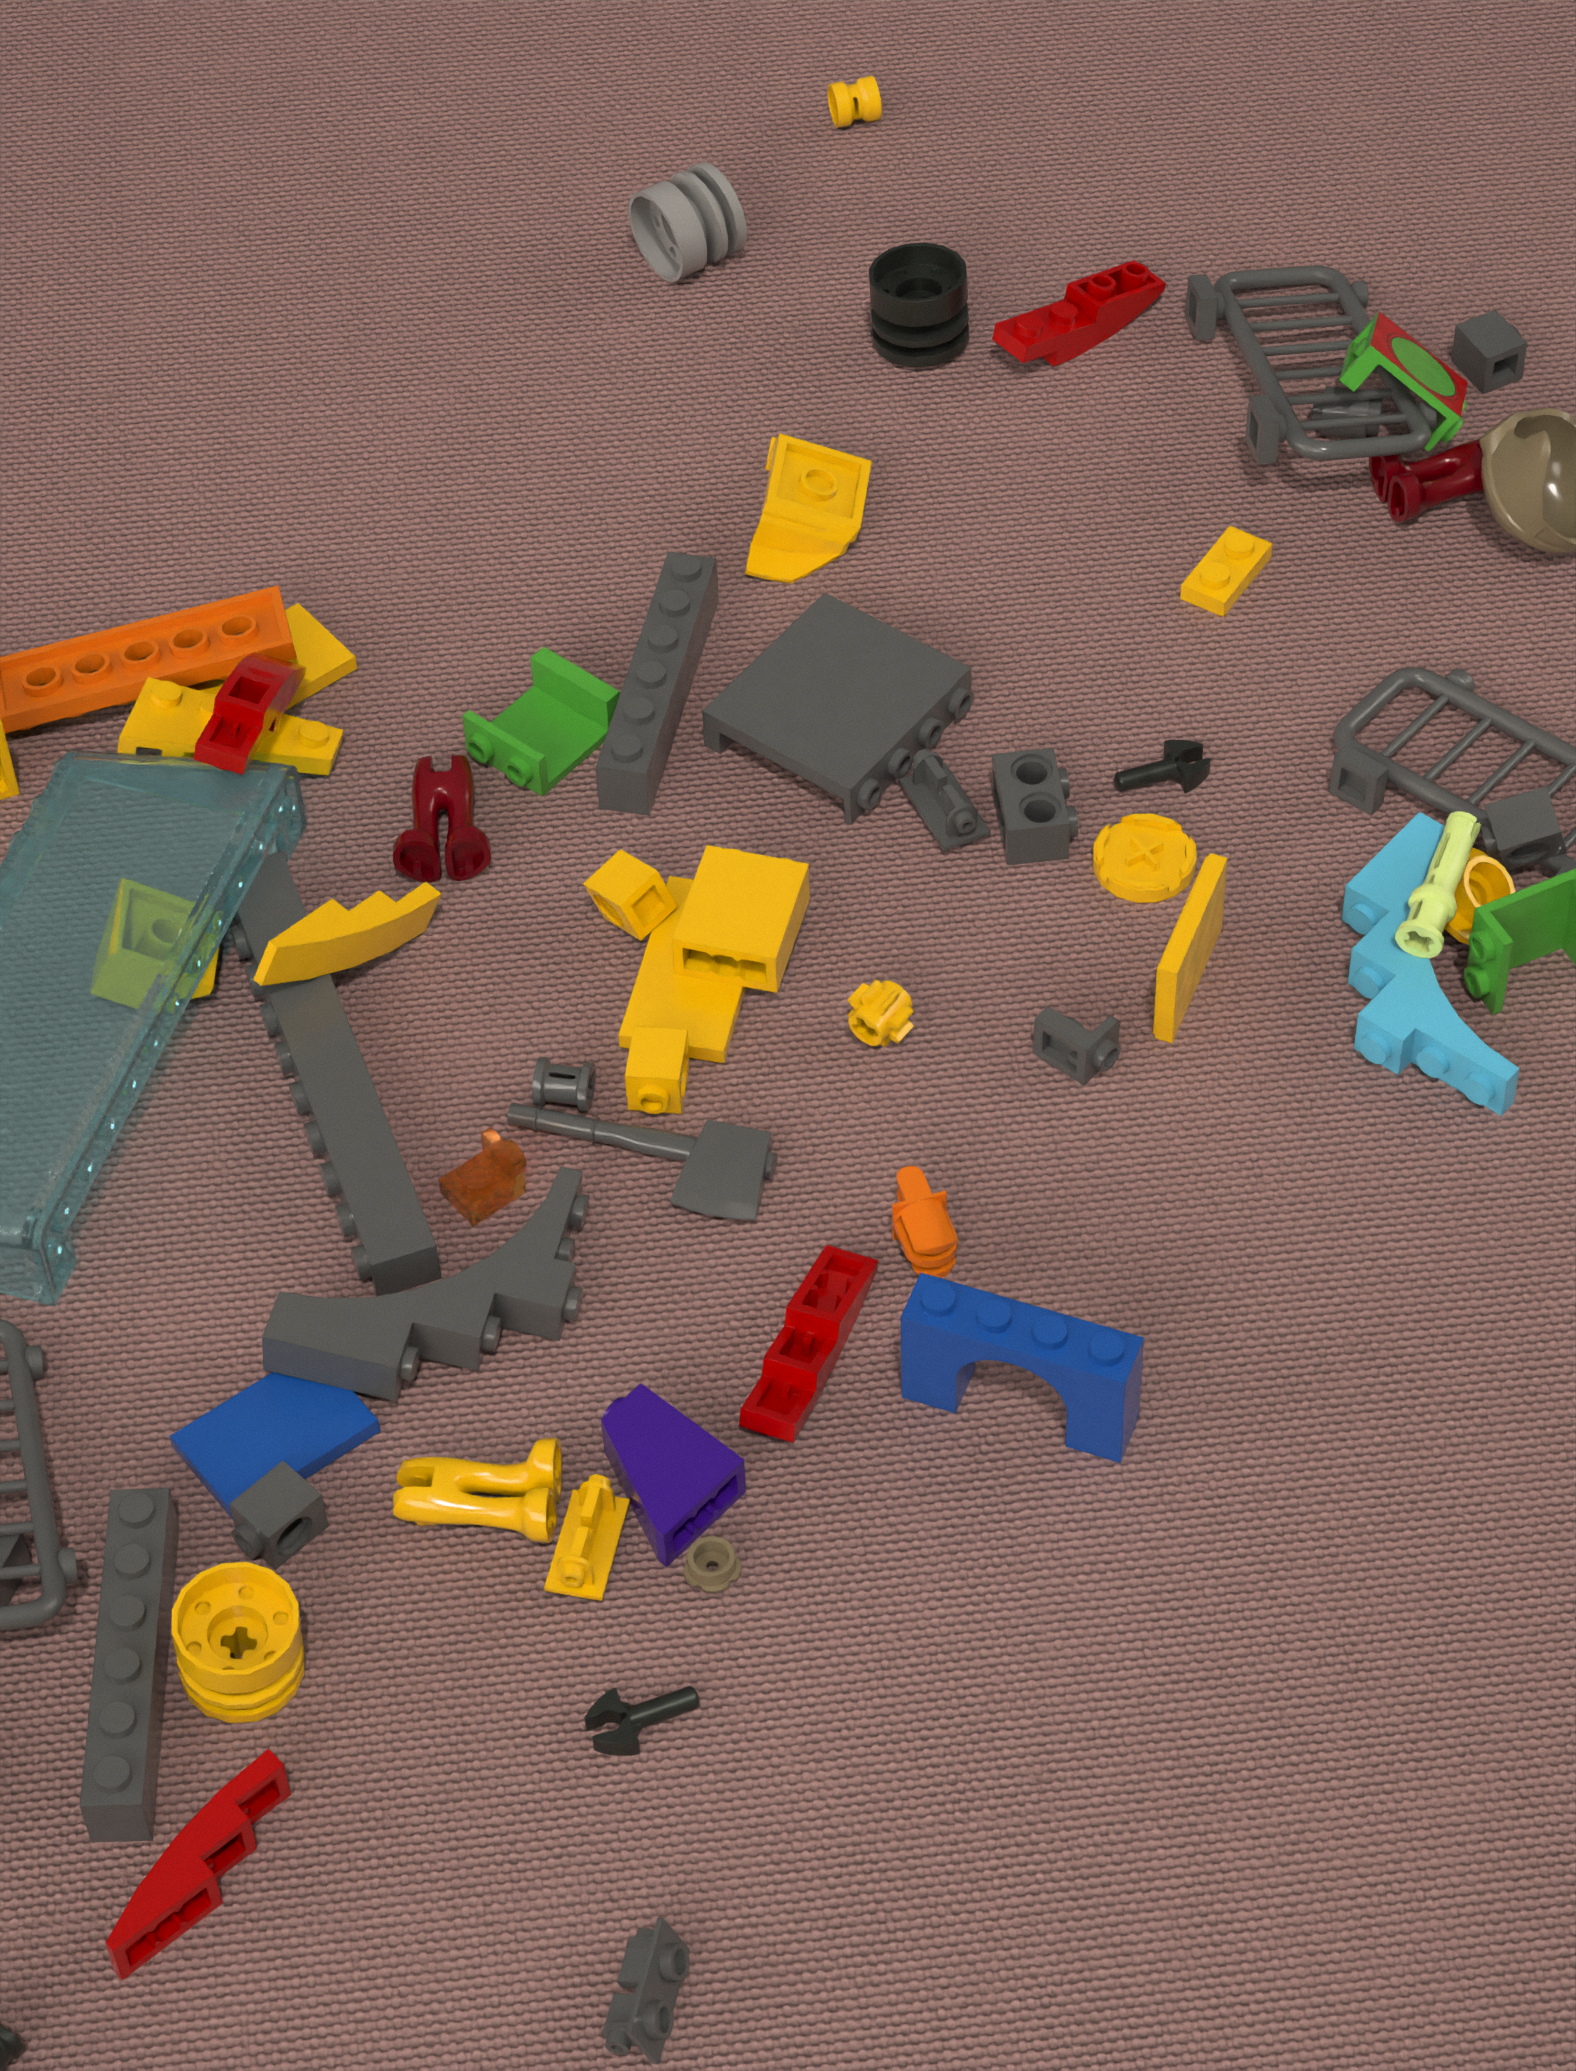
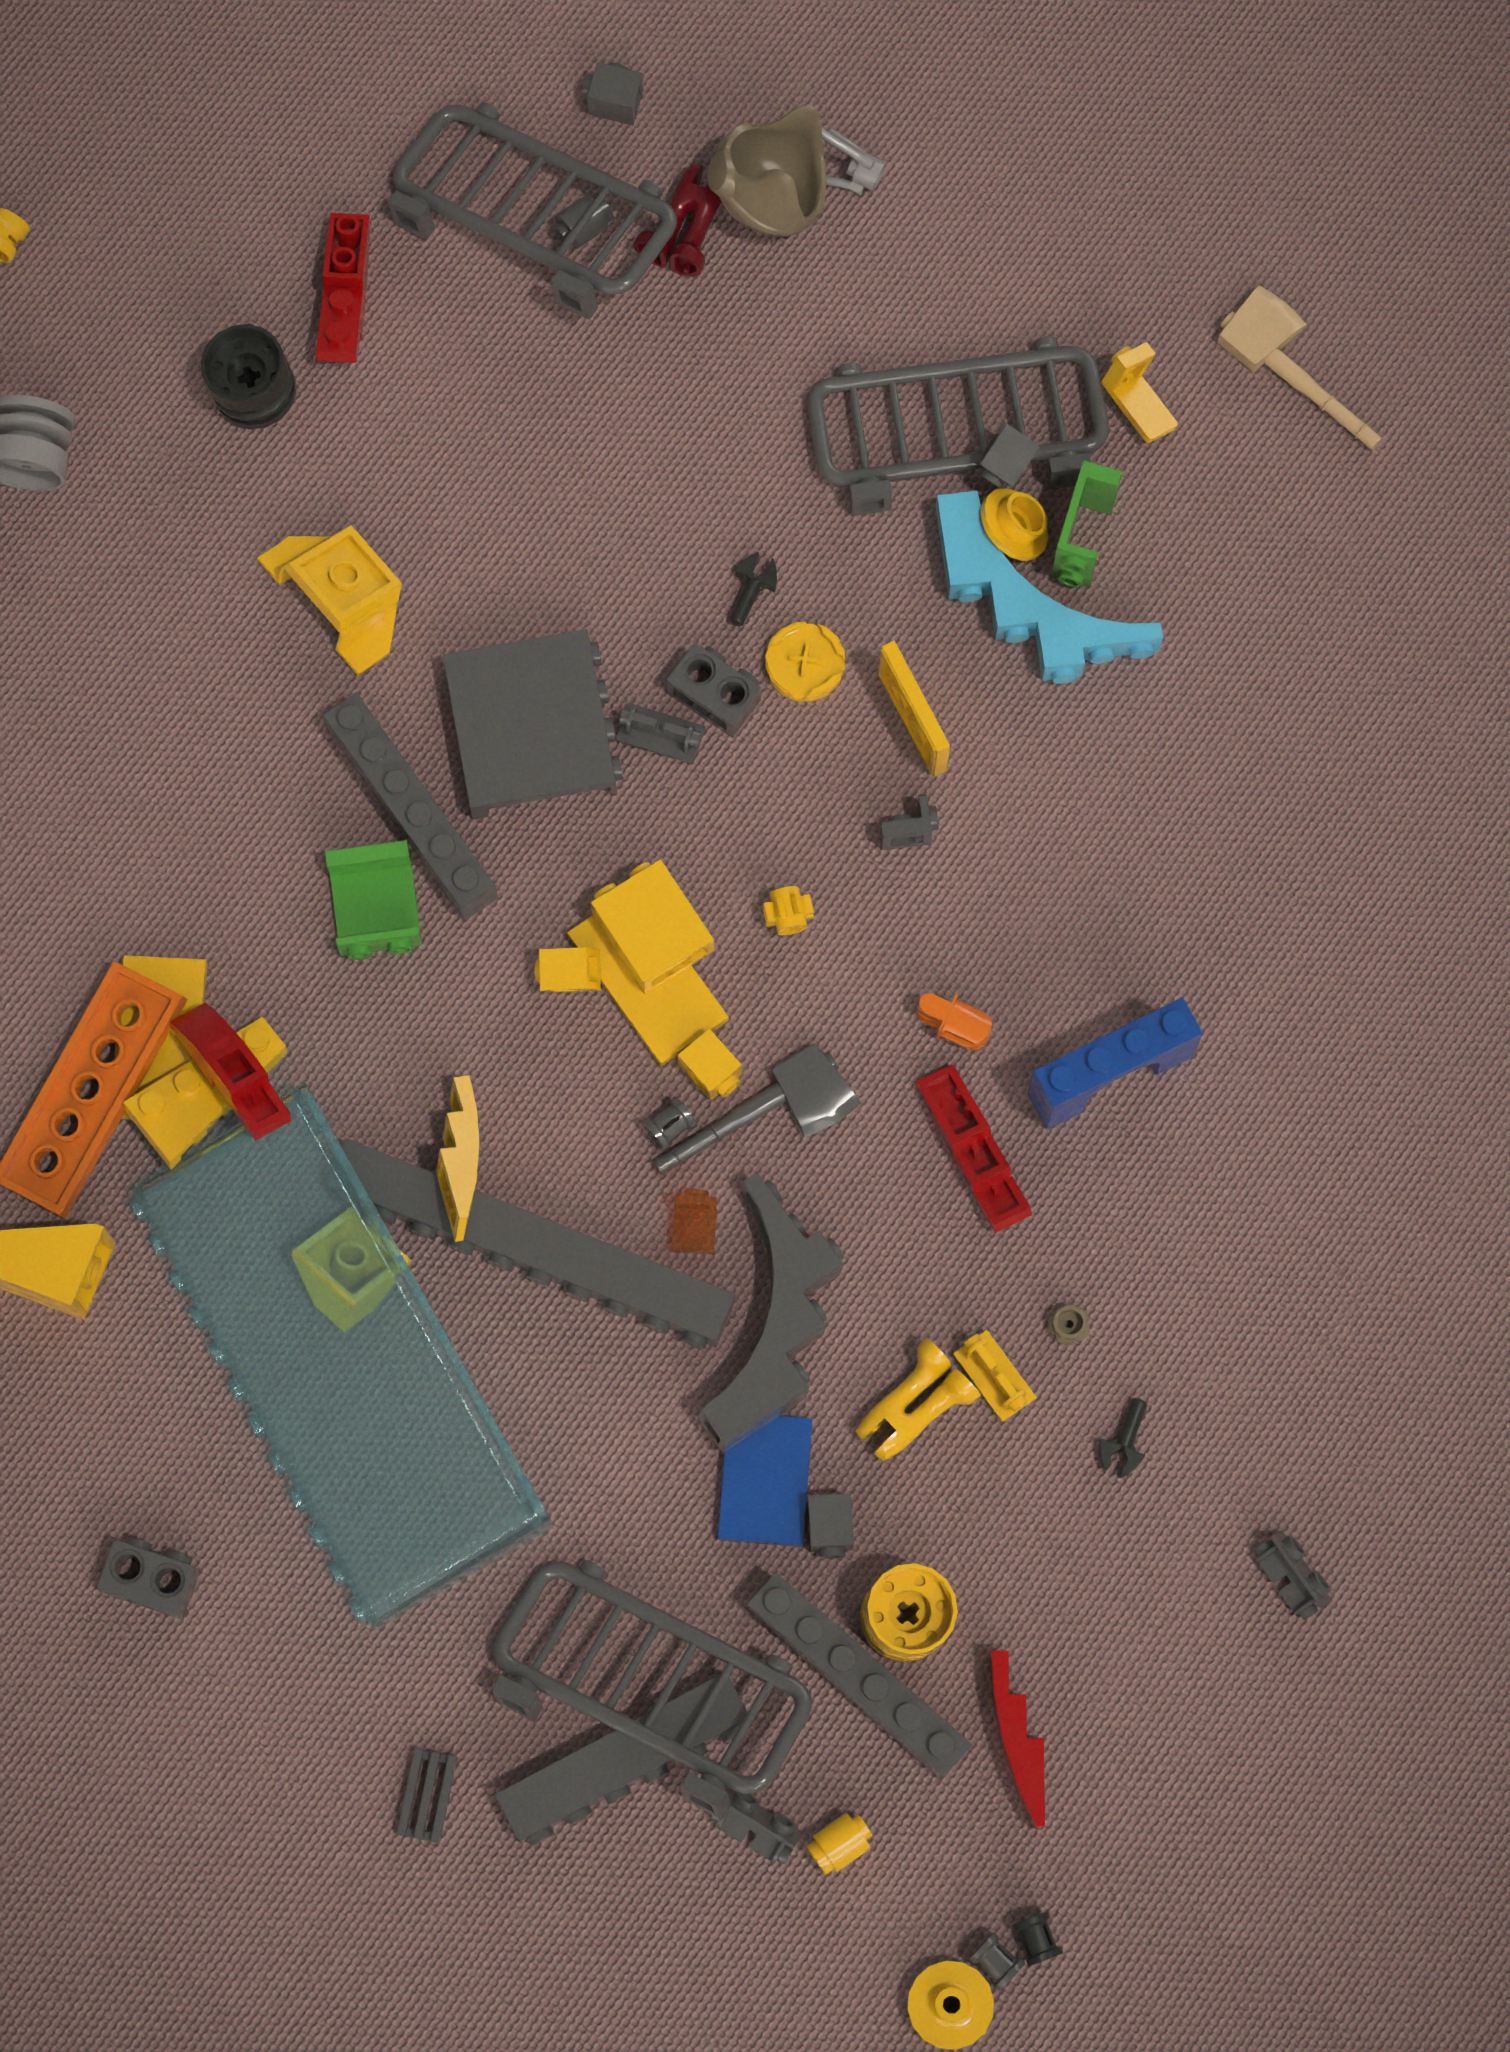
camera: 50 degrees left, 25 degrees up
(466, 848) = (383, 998): dark red piece -> none
(669, 1470) = (990, 1296): dark purple slope -> none
(1226, 571) = (633, 407): yellow plate -> none
(1414, 366) = (595, 166): bright green panel -> none
(1434, 900) = (1019, 558): yellowish green pin -> none

